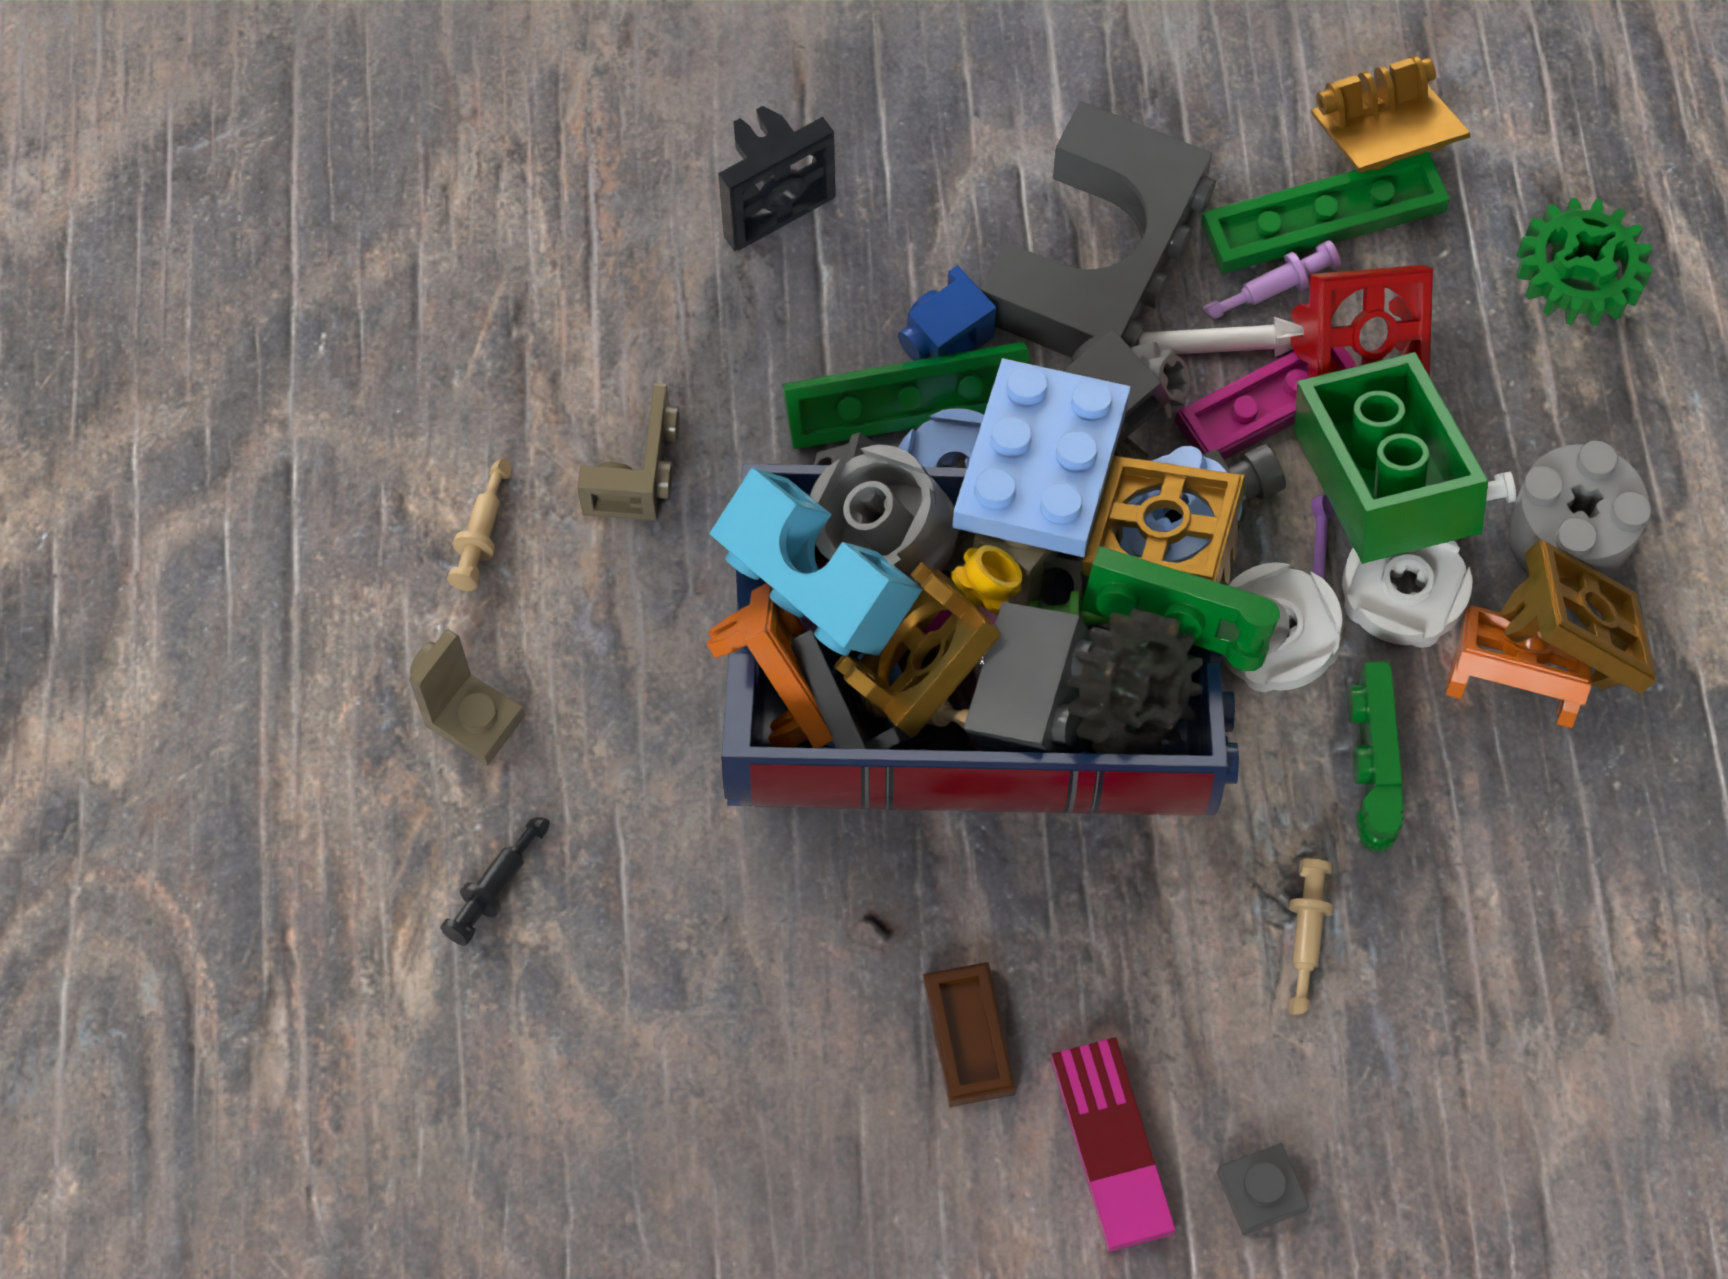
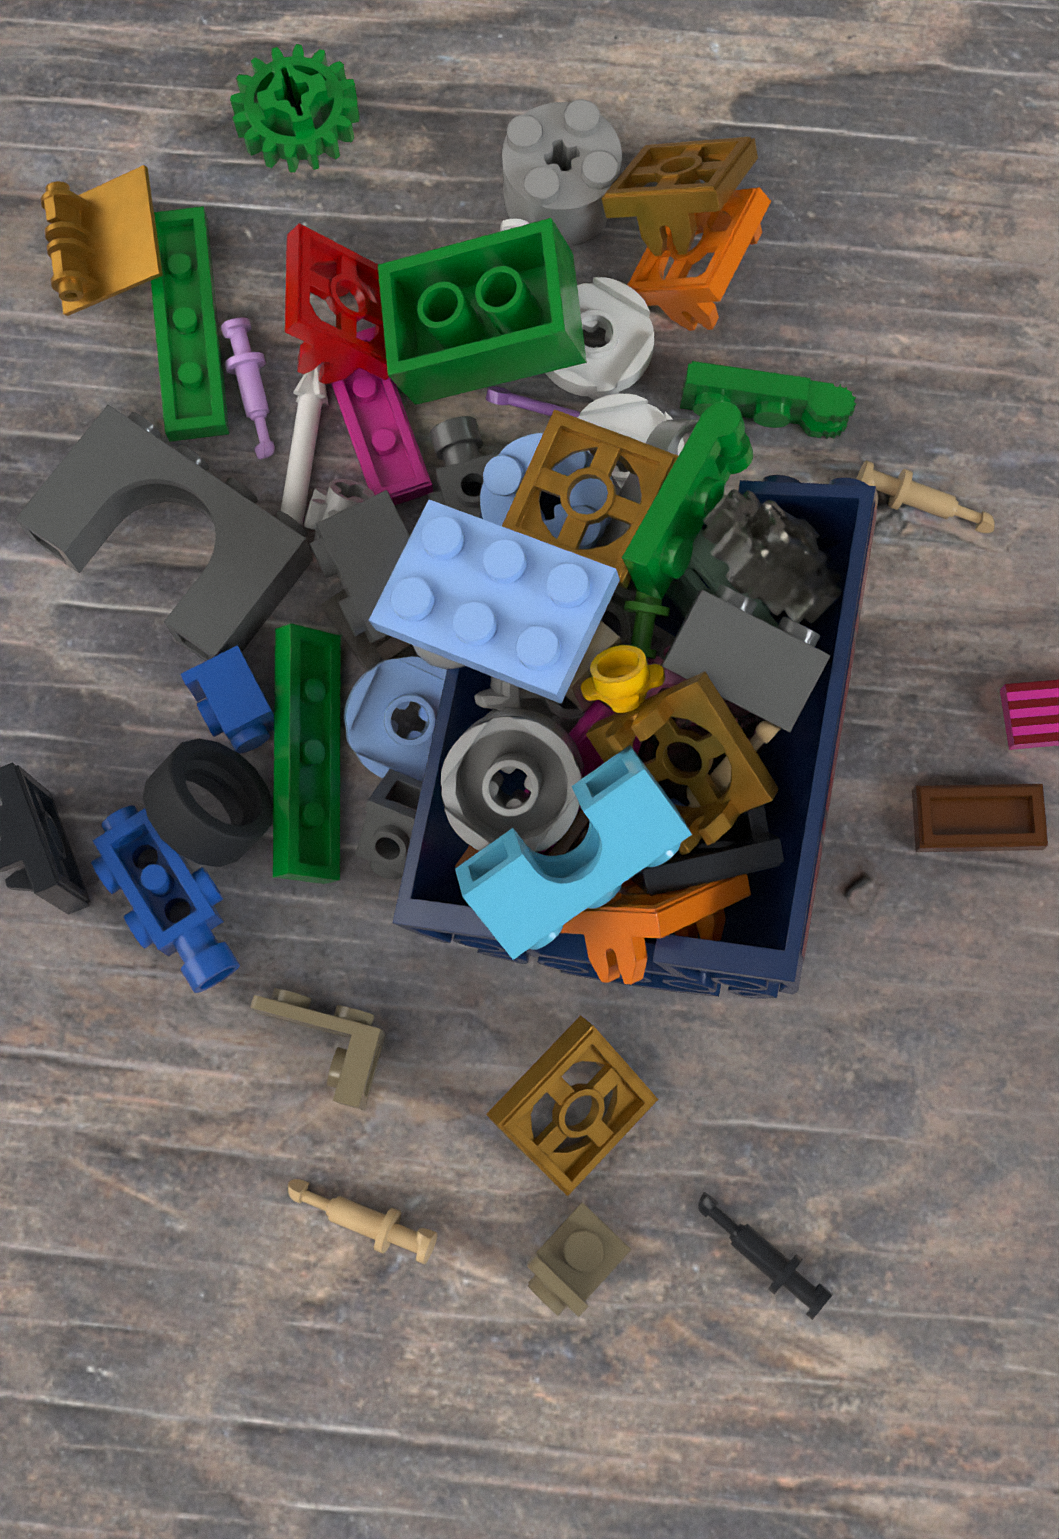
camera: 80 degrees left, 10 degrees up
(552, 685) = (627, 1106): none -> pearl gold piece
(751, 294) = (157, 890): none -> blue brick
(878, 318) = (186, 824): none -> black tyre

